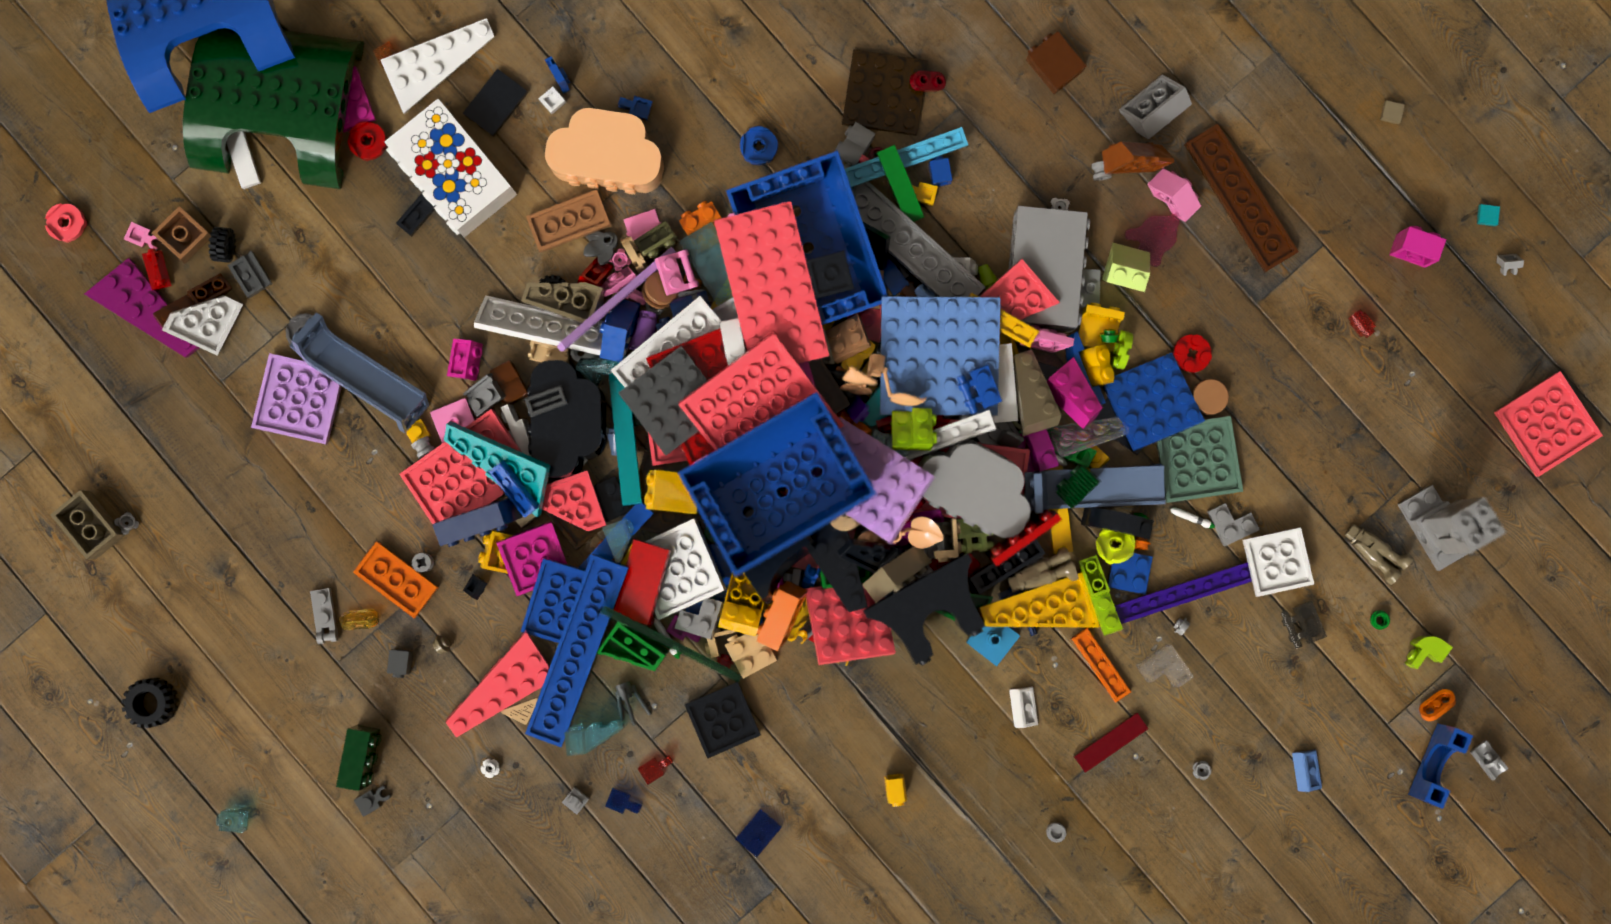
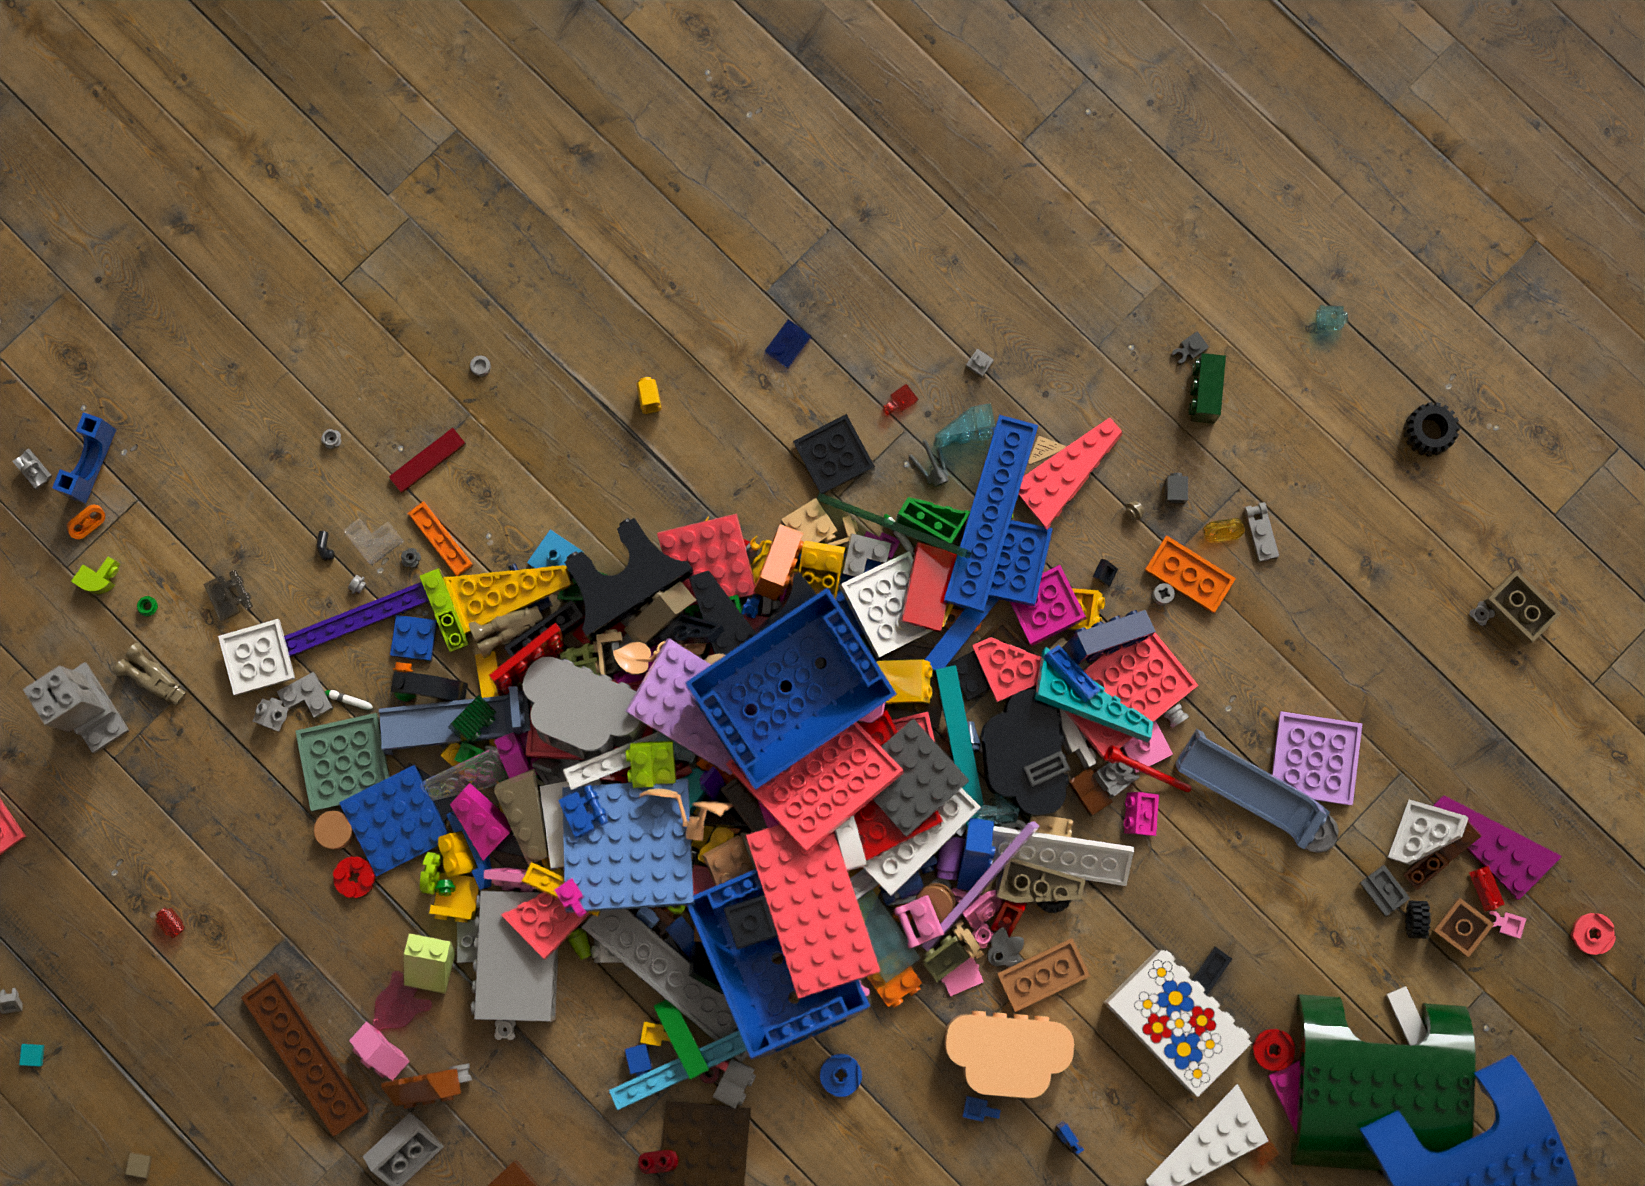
camera: 175 degrees right, 5 degrees down
(418, 431) = (1183, 732): yellow plate -> none
(482, 410) = (1114, 755): none -> red piece
(485, 768) = (1067, 392): white plate -> none
(495, 102) = (1137, 1104): black tile -> none
(552, 100) = (1074, 1110): white plate -> none
(619, 537) = (957, 632): clear light blue slope -> none
(620, 801) = (934, 364): clear blue plate -> none
(725, 660) = (836, 514): dark red plate -> none
(994, 310) = (570, 896): none -> dark pink plate
(1023, 707) = (519, 489): white slope -> none
(1111, 554) = (431, 652): neon yellow plate -> none
(1129, 643) = (414, 561): none -> dark grey plate
(1213, 670) = (321, 546): none -> black arm
(1266, 508) = (270, 714): none -> light grey brick
(1307, 770) = (221, 446): medium blue slope -> none
(1418, 246) = (110, 1010): dark pink brick -> none

